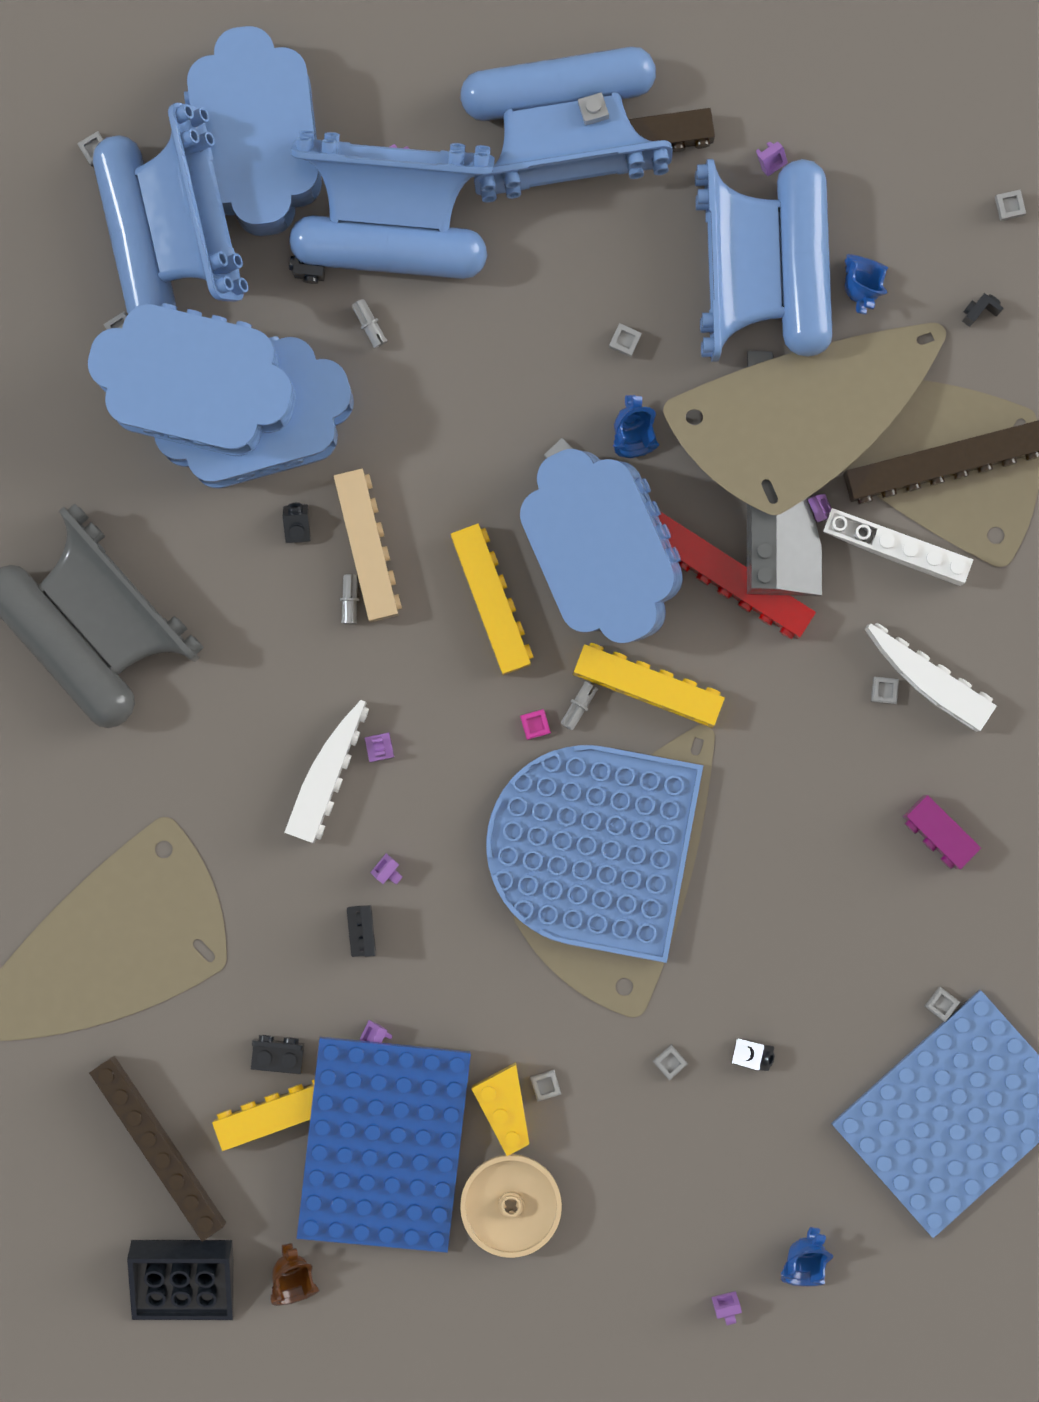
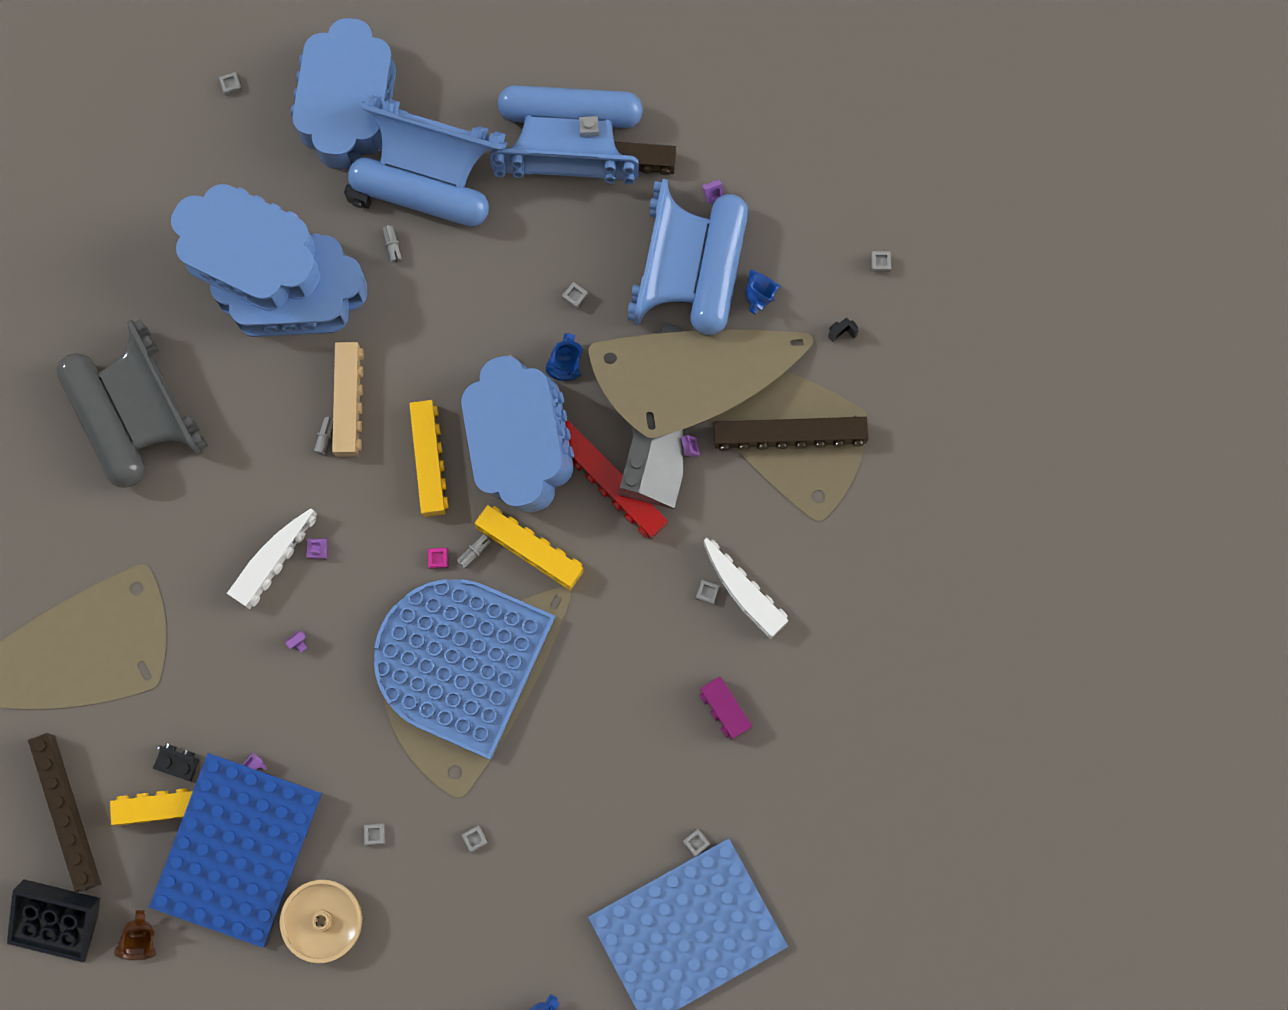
camera: 20 degrees right, 10 degrees down
(167, 214) = (266, 131): medium blue piece -> none
(296, 523) = (300, 372): black bracket -> none
(361, 931) = (266, 681): black bracket -> none
(503, 1106) = (336, 843): yellow wedge -> none
(753, 1055) = (540, 847): bracket -> none
(899, 547) = (742, 487): white slope -> none

